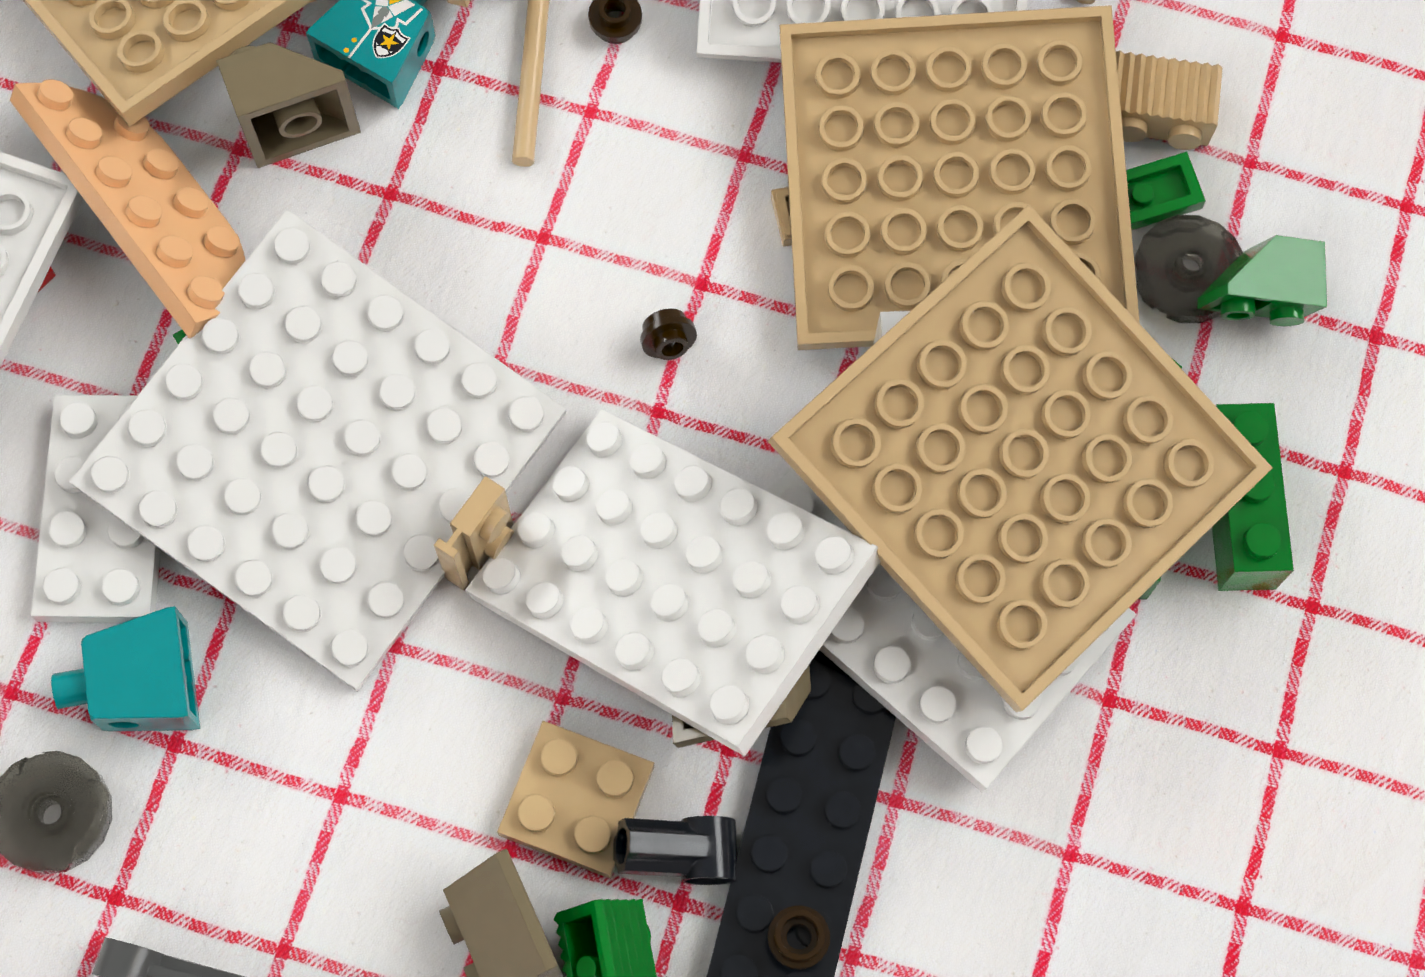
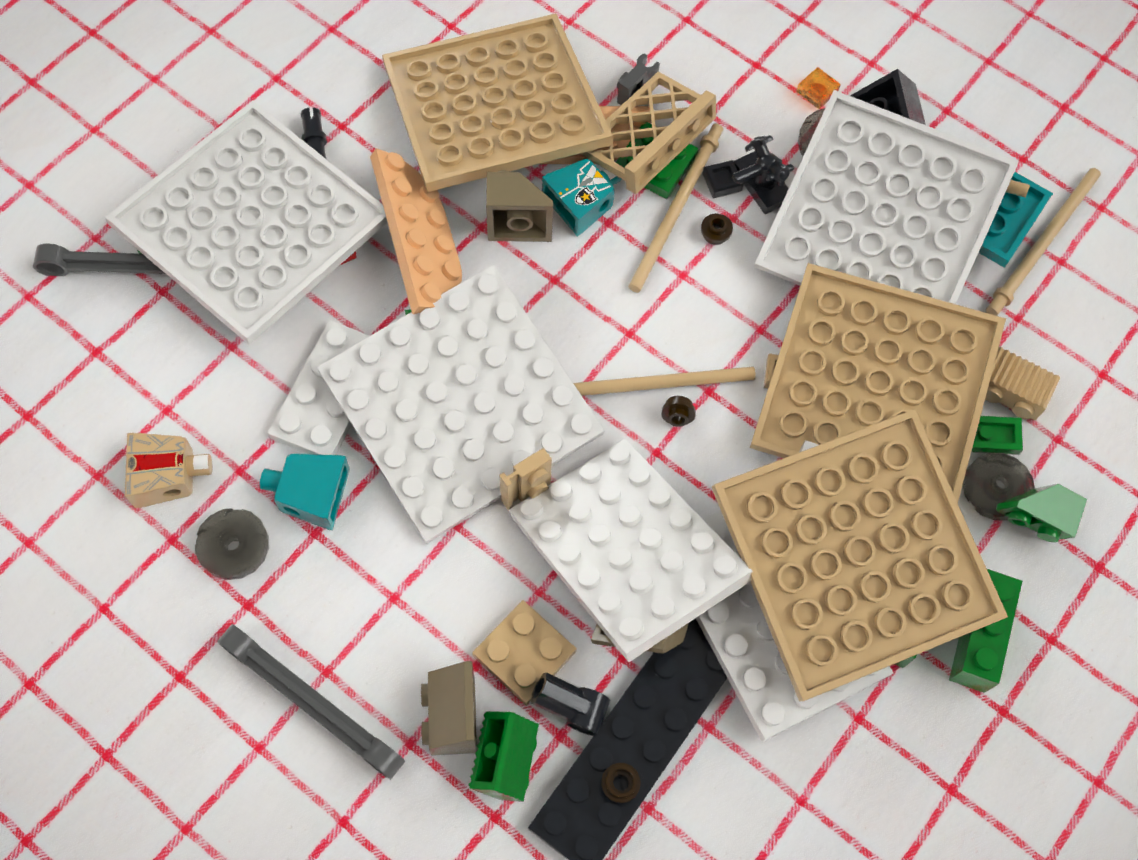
camera: 20 degrees right, 5 degrees down
(628, 293) = (665, 381): none -> tan bar

